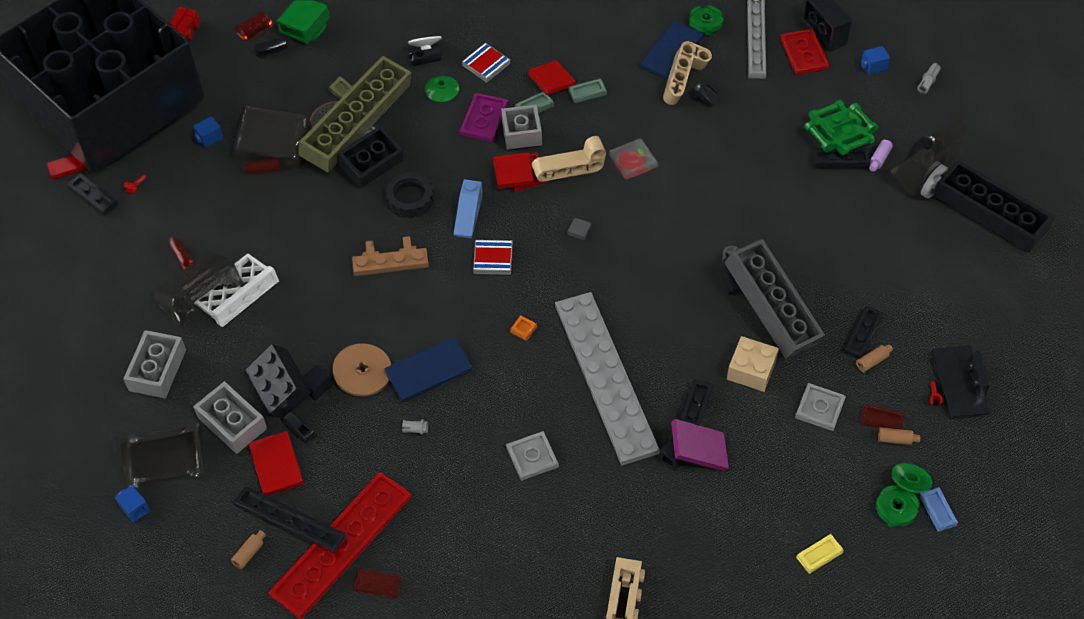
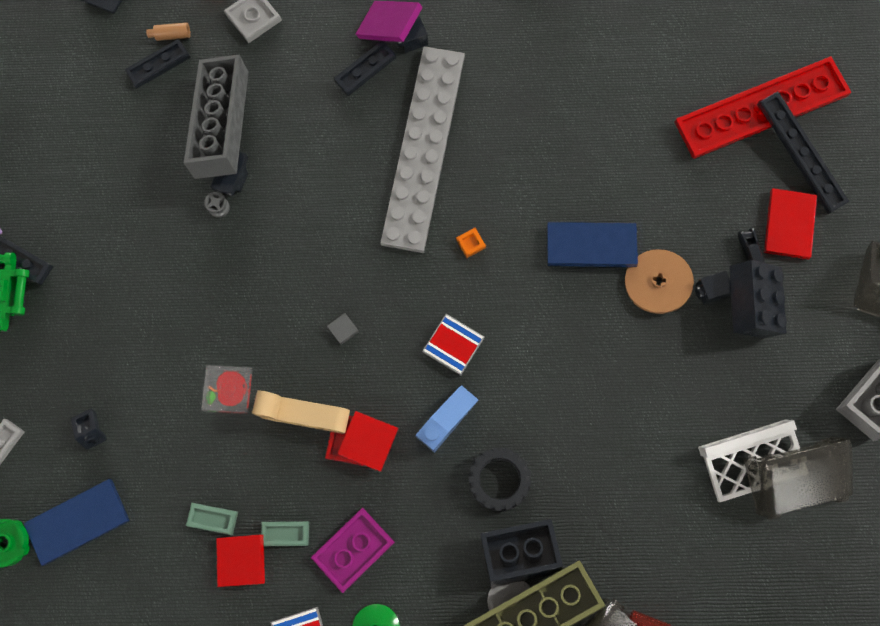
camera: 145 degrees left, 20 degrees up
(180, 252) = (798, 546): clear red cylinder -> none
(230, 417) = (822, 288): light grey brick -> none
(248, 550) = (853, 146): medium nougat cylinder -> none
(377, 583) = (744, 58): clear red plate -> none
(404, 259) = (549, 395): medium nougat hinge -> none
(415, 426) = (636, 188): light grey pin -> none
(521, 127) = (322, 497): light grey brick -> none
(532, 455) = (540, 104): light grey tile -> none
(687, 56) = (90, 475): tan beam -> none
(752, 363) = (282, 78): tan brick -> none

